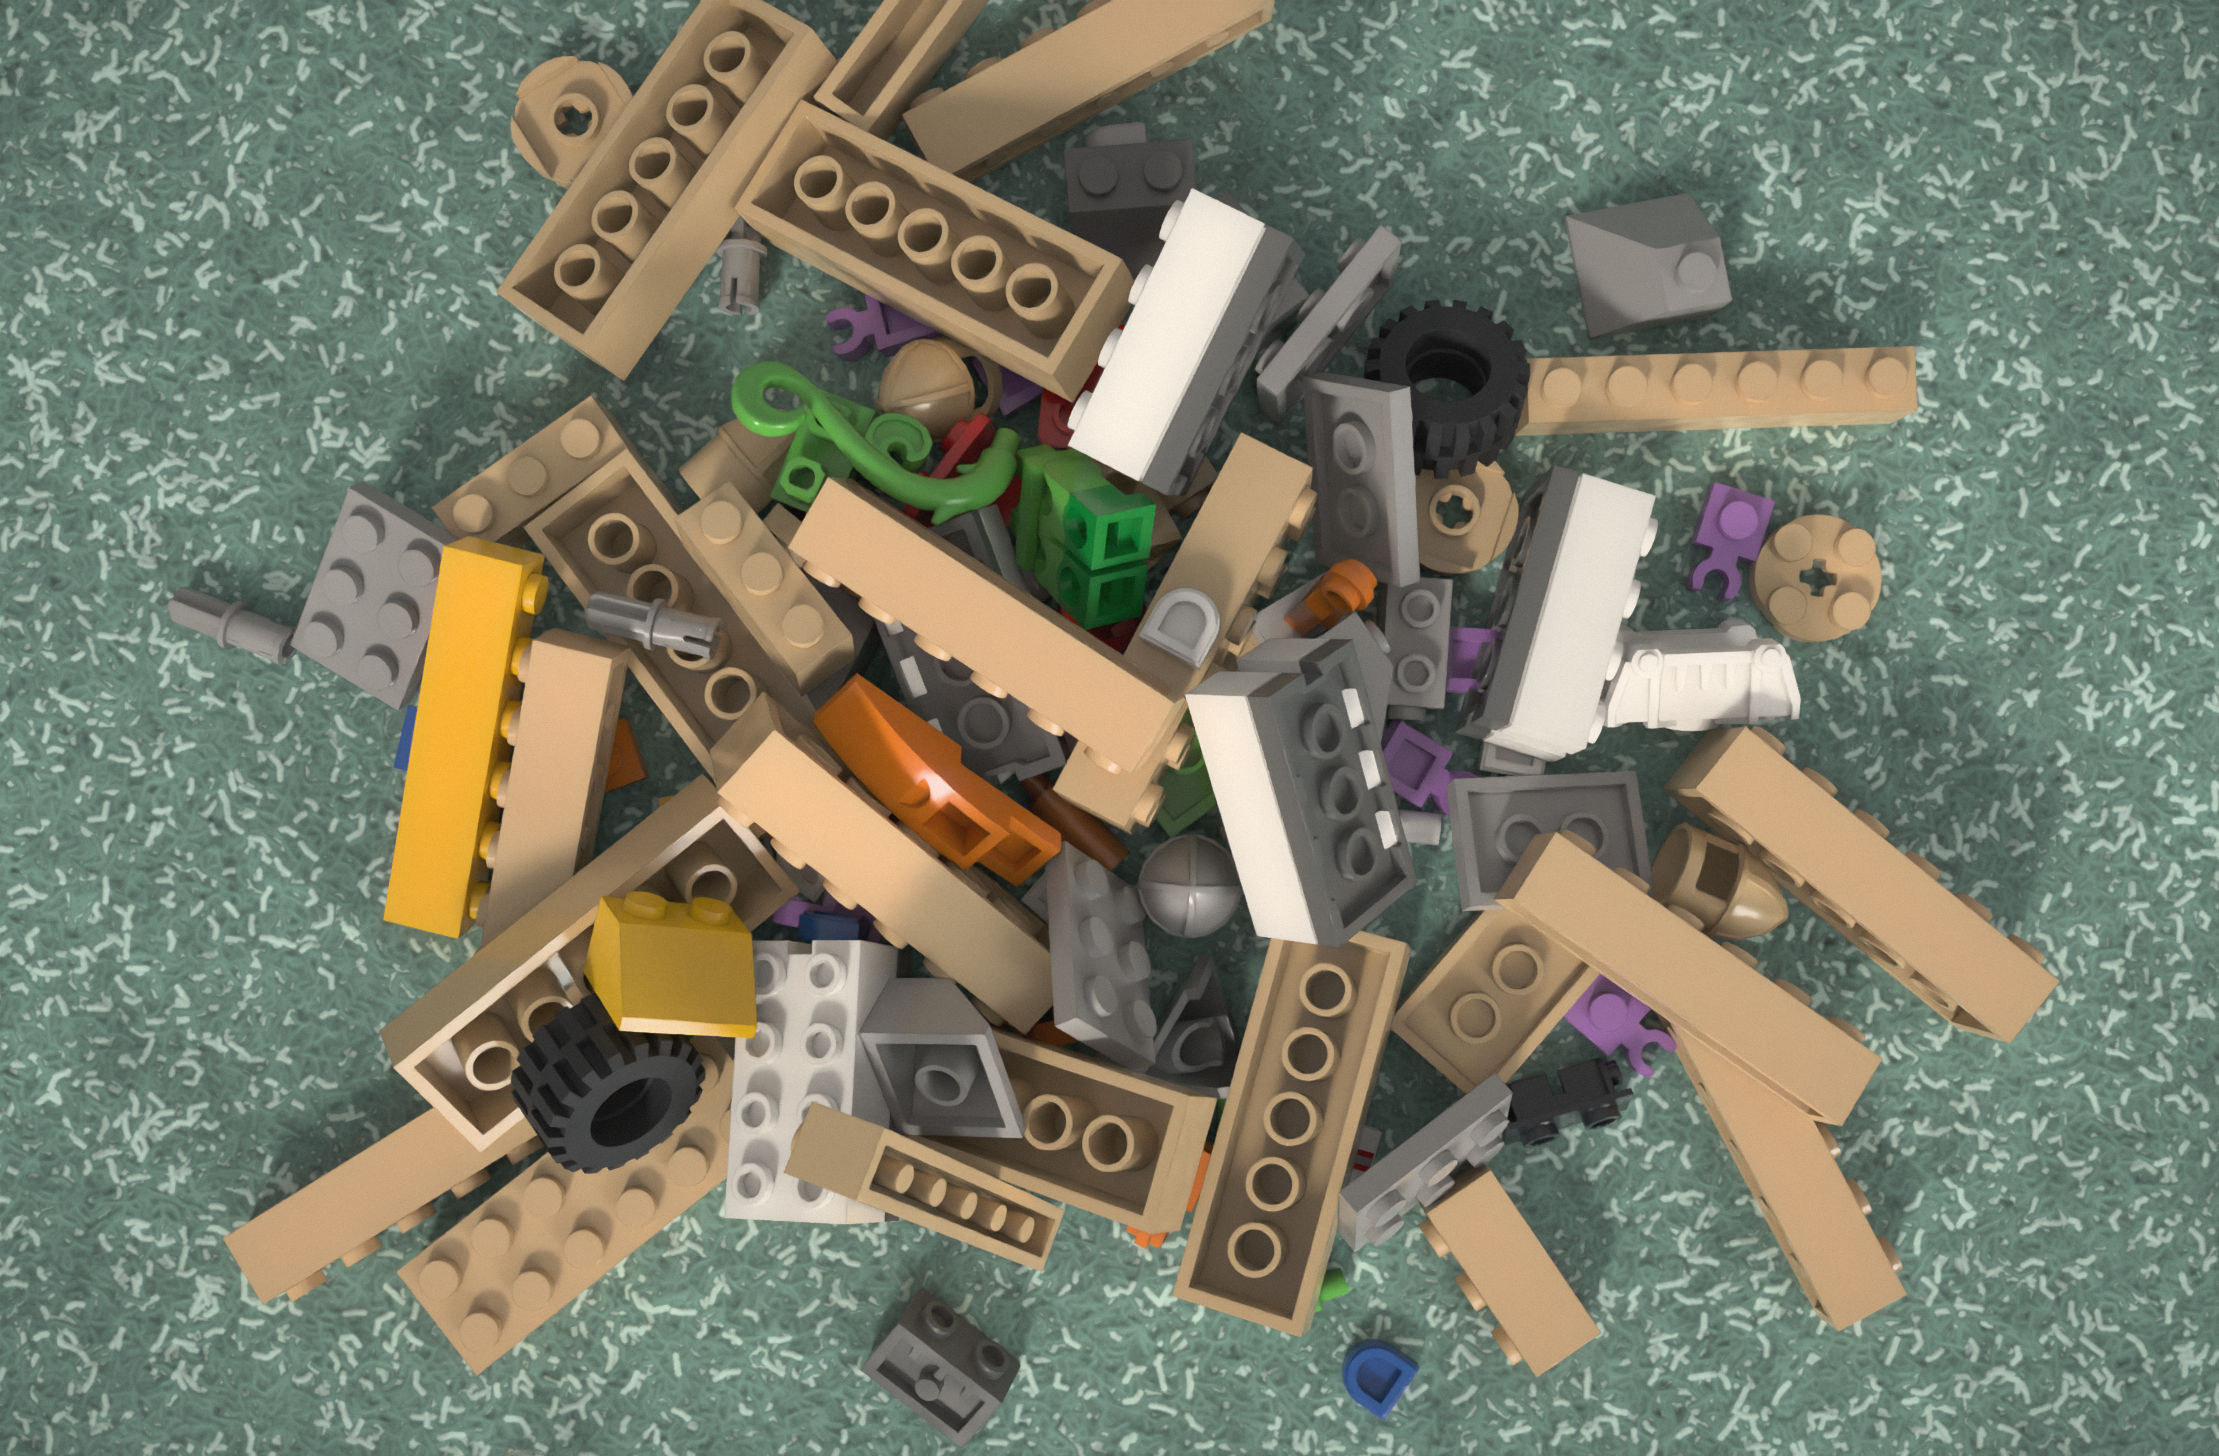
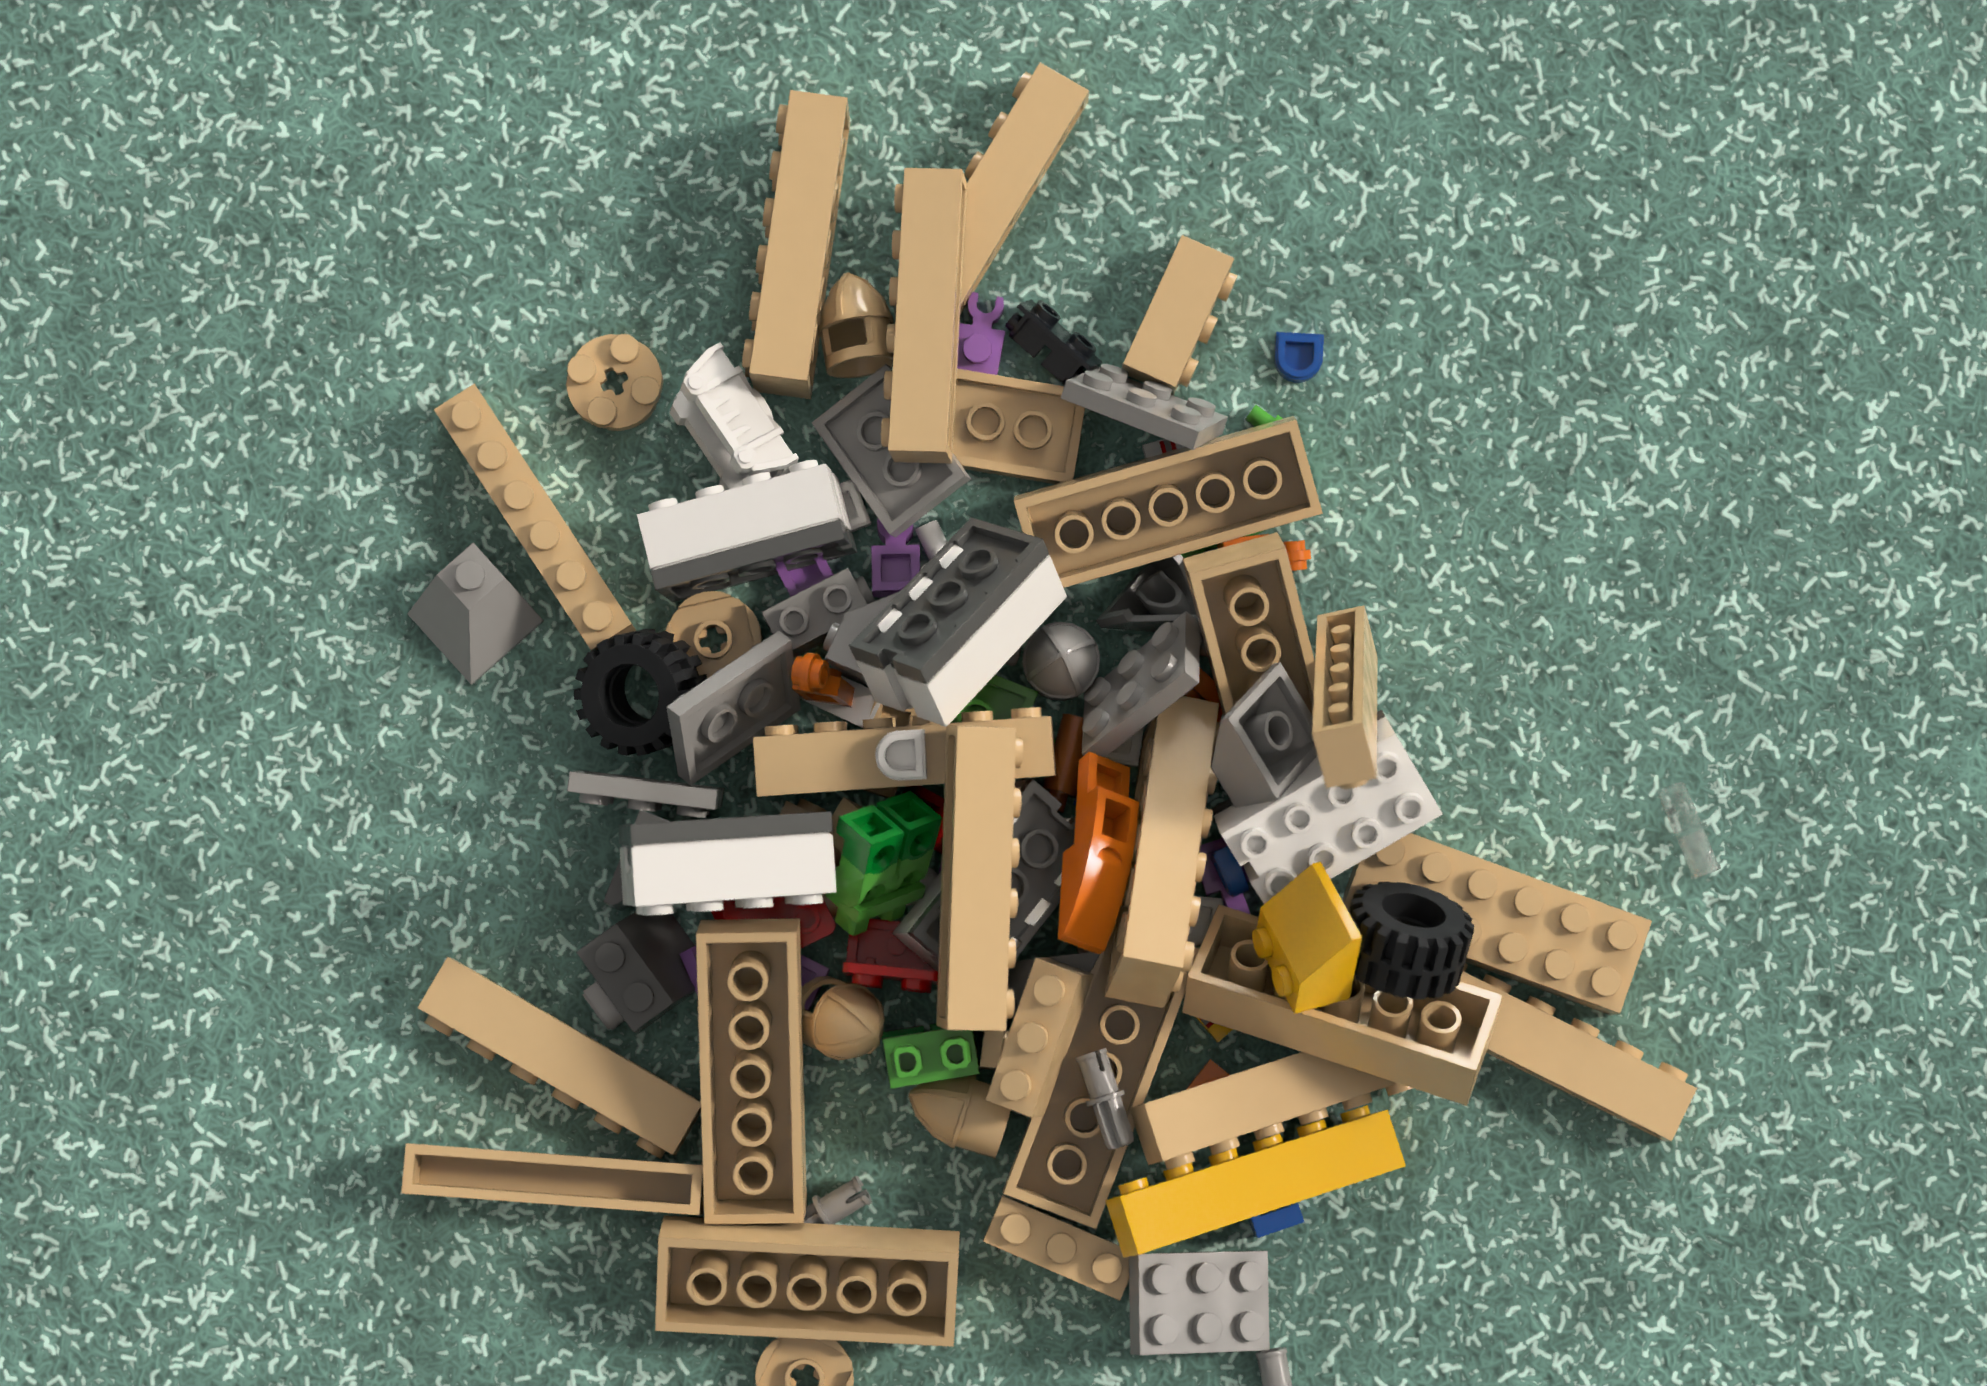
camera: 125 degrees left, 5 degrees down
(869, 455) = (915, 1019): bright green plant -> none
(876, 325) = (817, 1088): medium lavender plate -> none
(942, 1368) = (1467, 632): dark grey bracket -> none
(1730, 530) = (615, 456): medium lavender plate -> none

